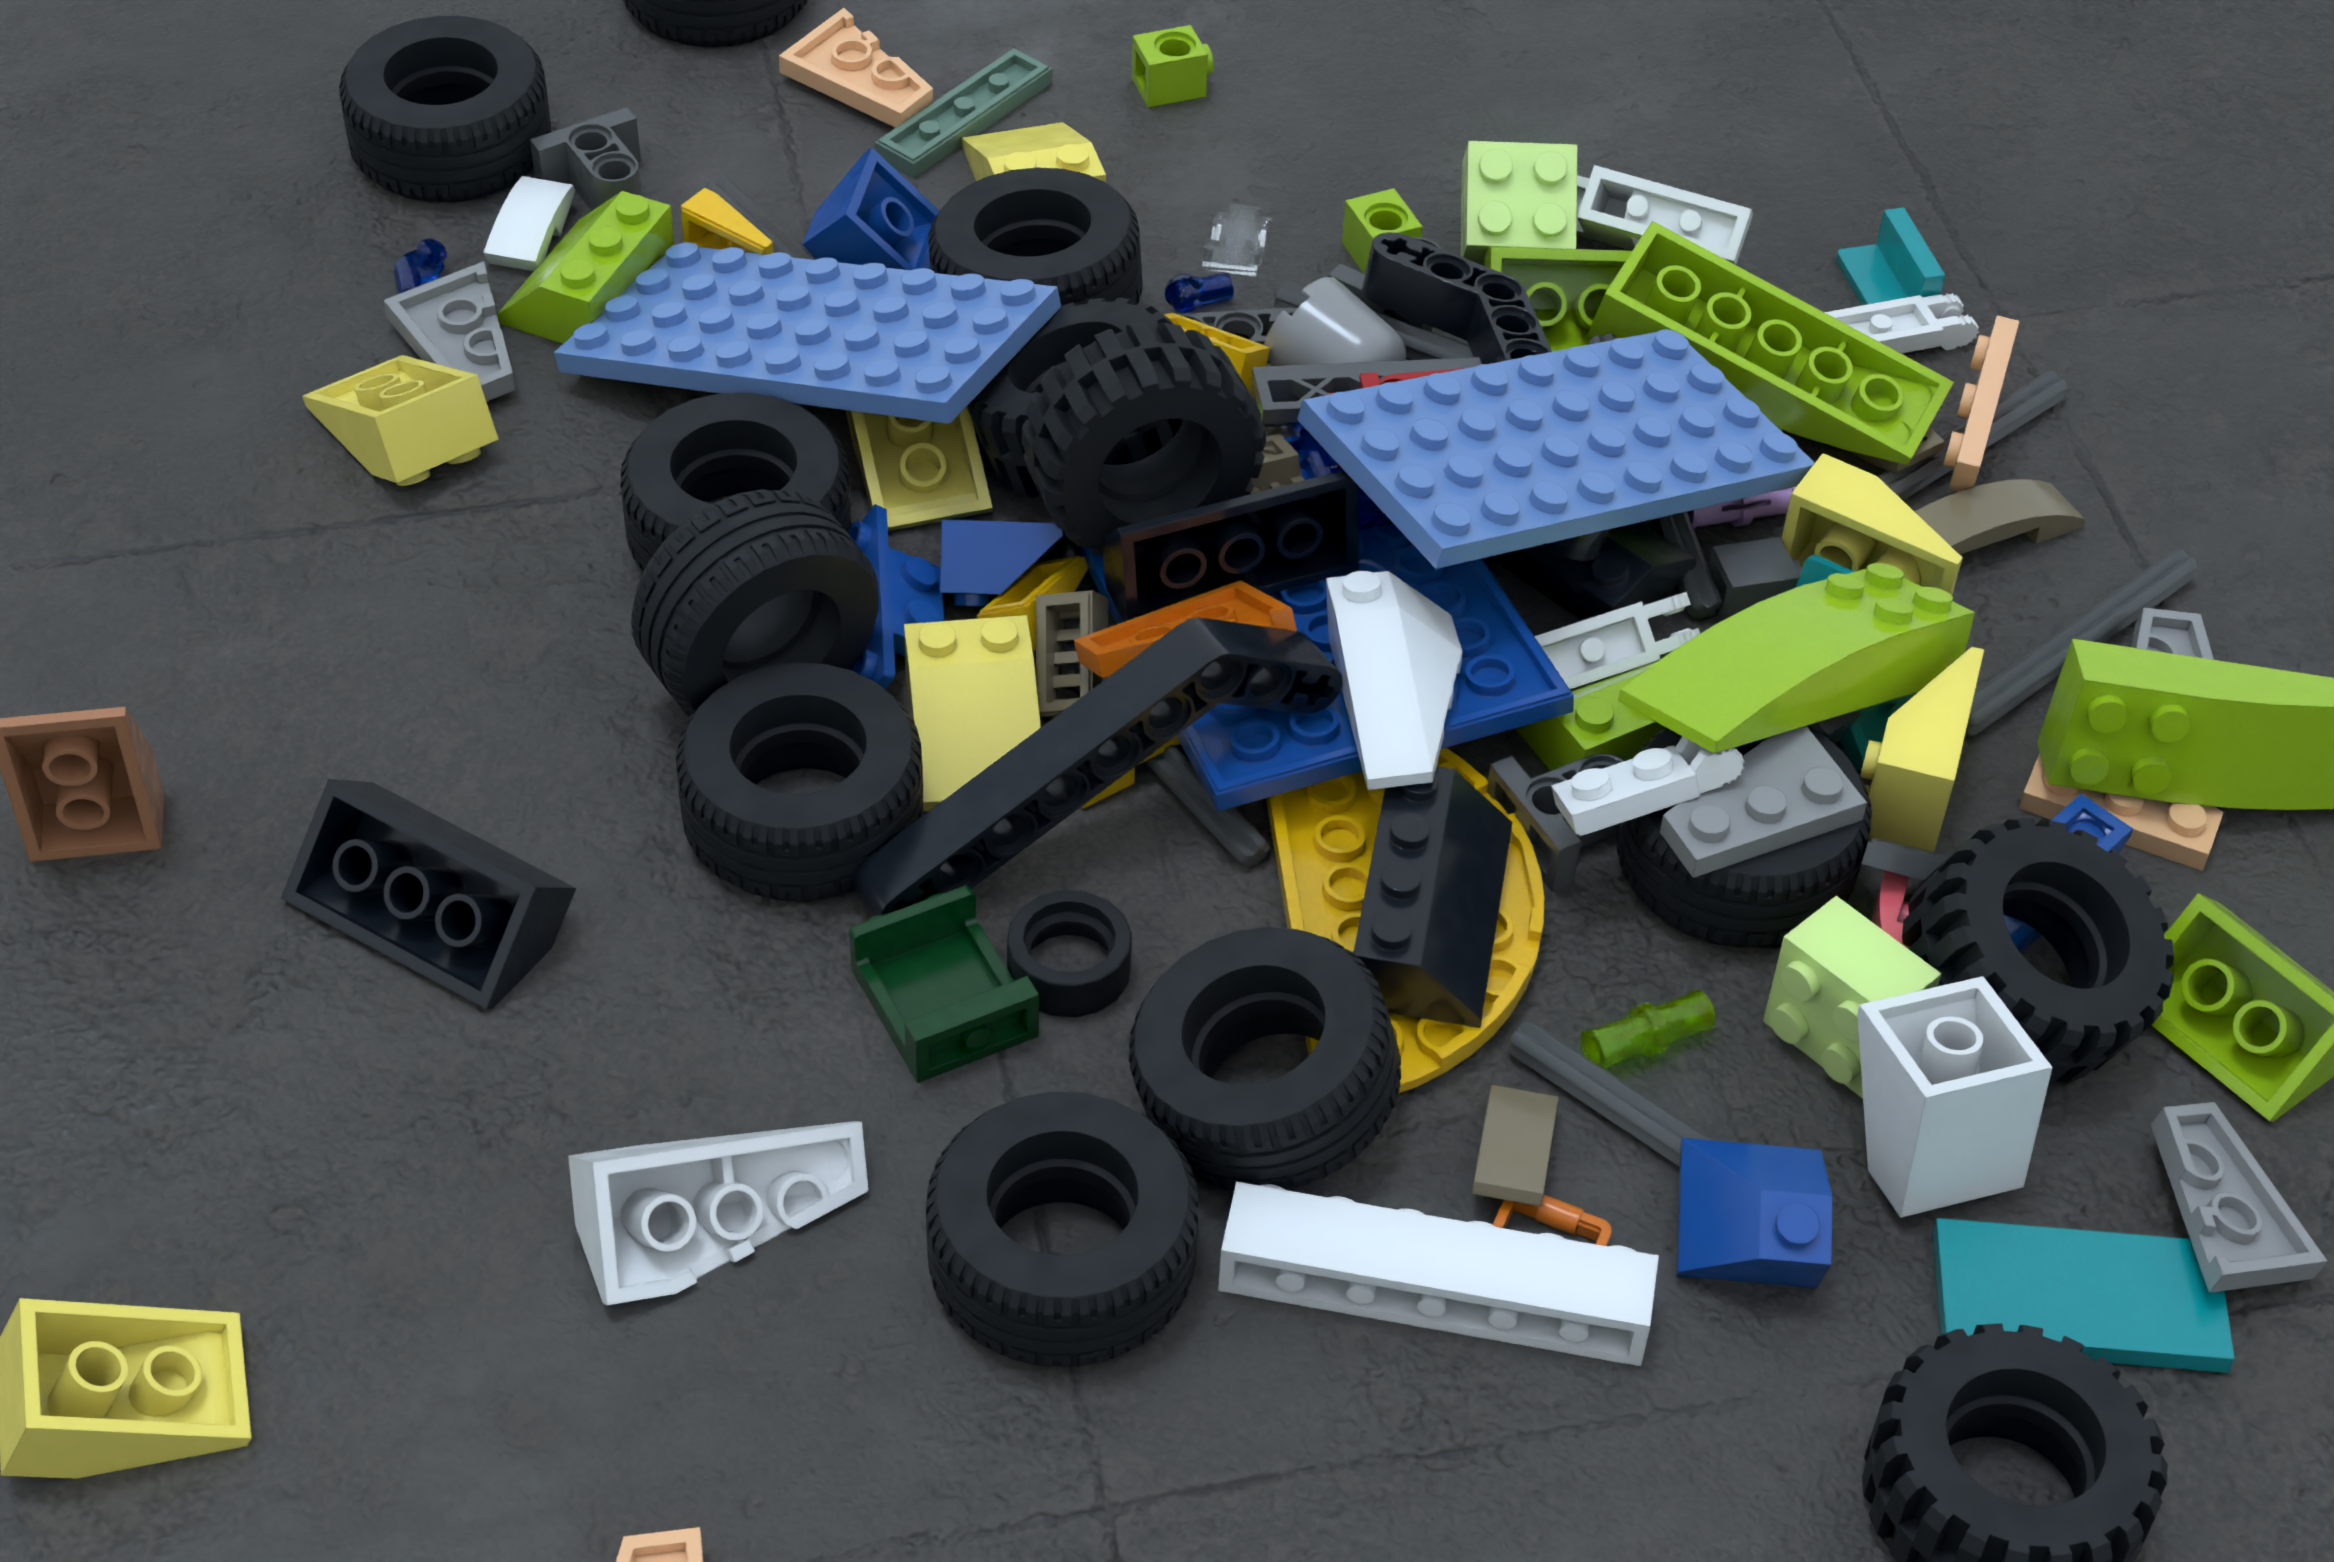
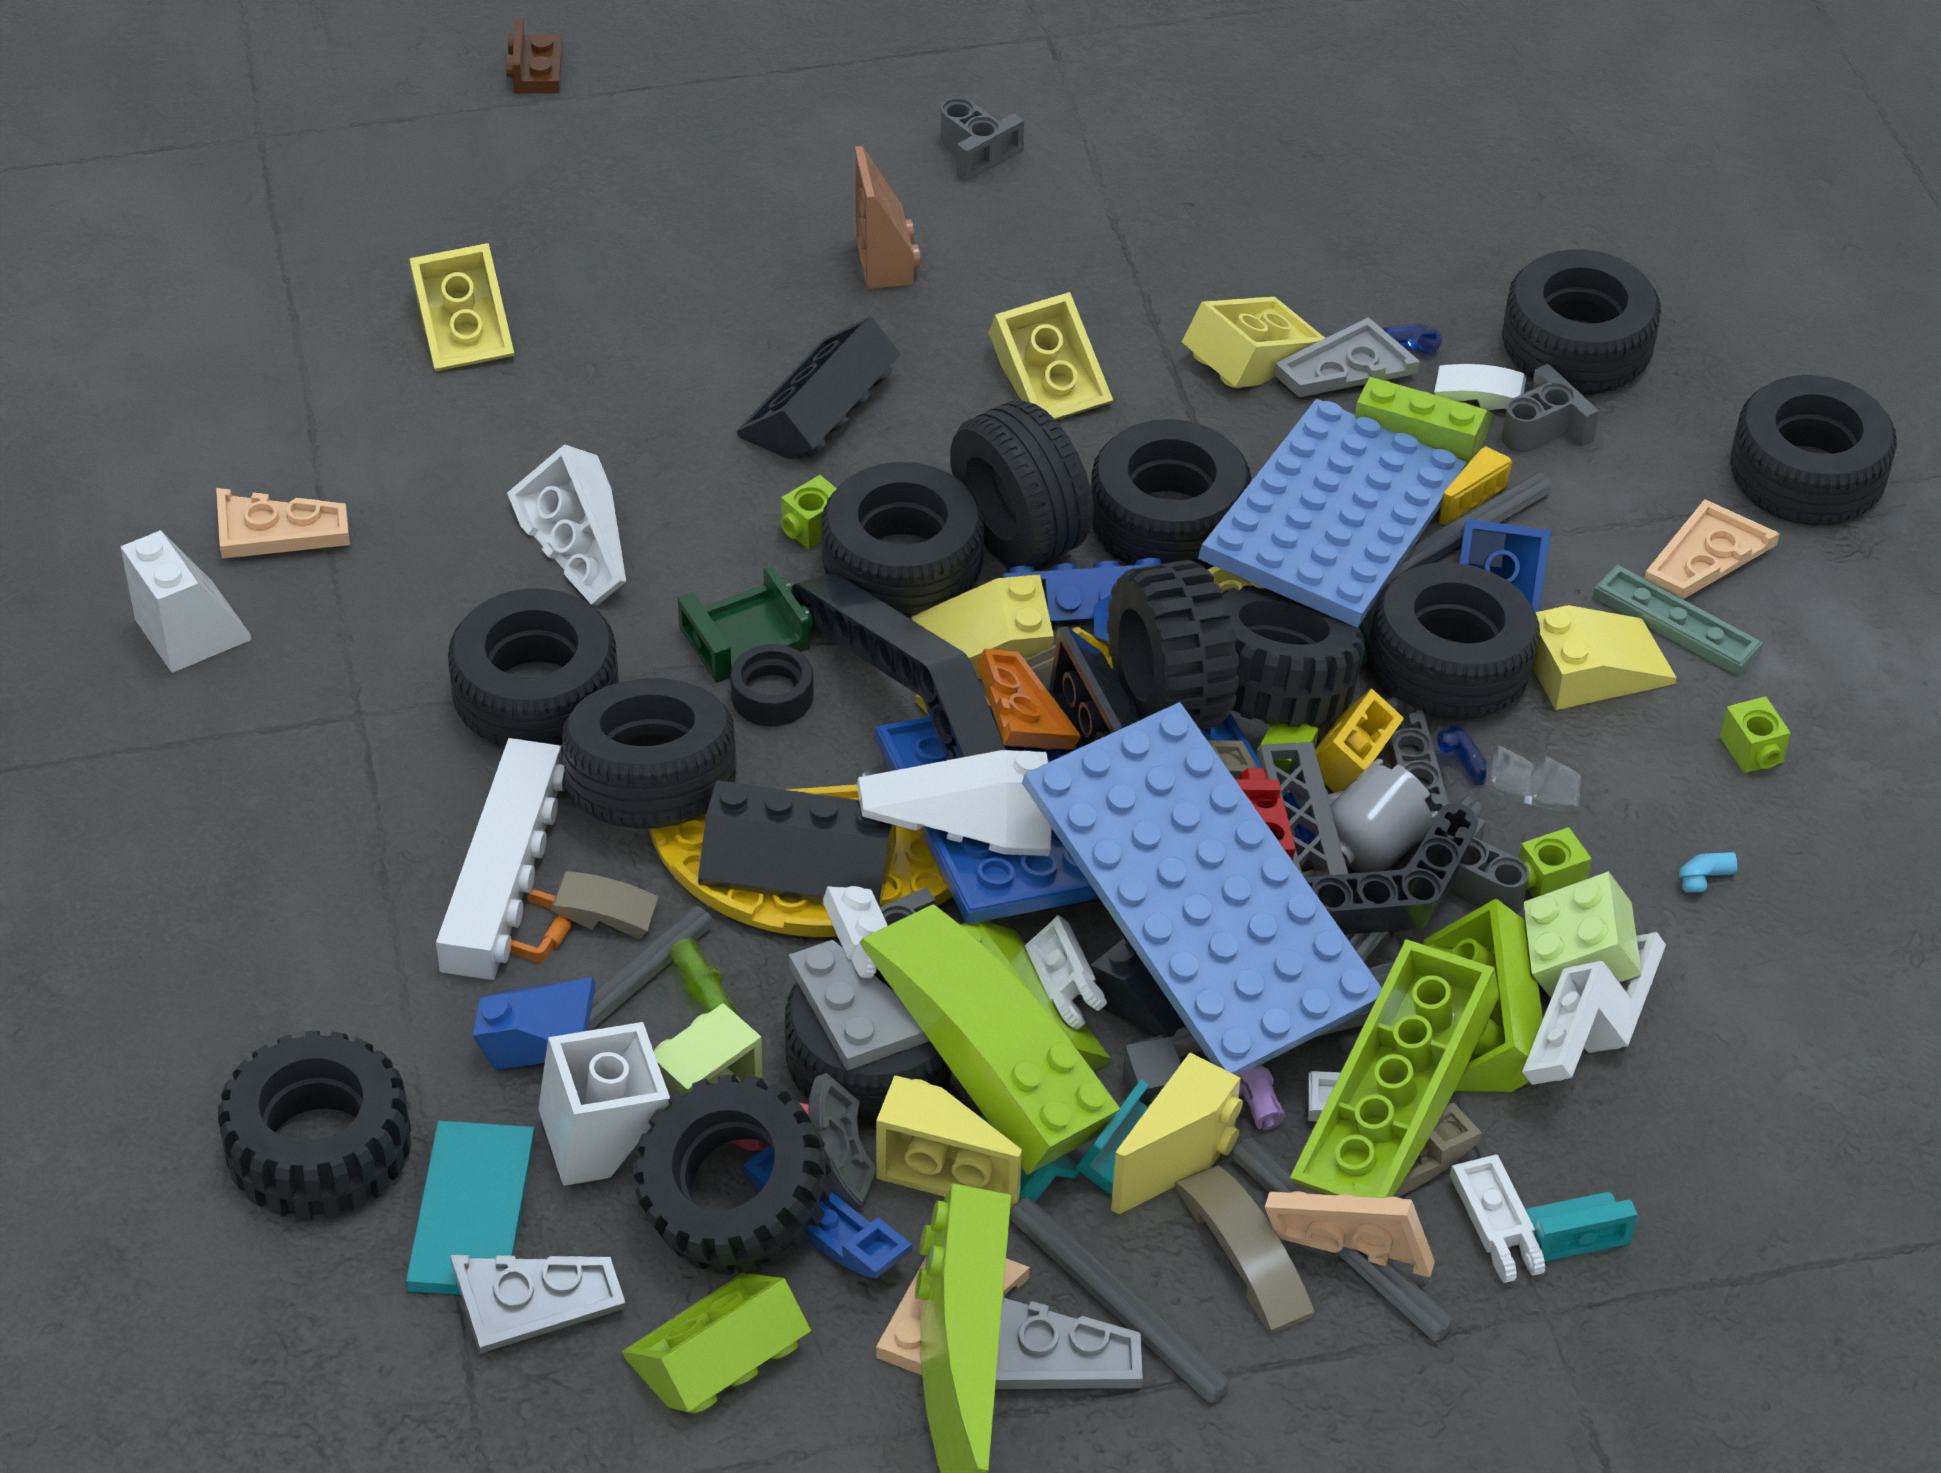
camera: 90 degrees right, 0 degrees up
(405, 623) = (1050, 357): none -> light yellow slope
(708, 897) = (804, 509): none -> lime brick
(1371, 134) = (1704, 865): none -> medium azure arm

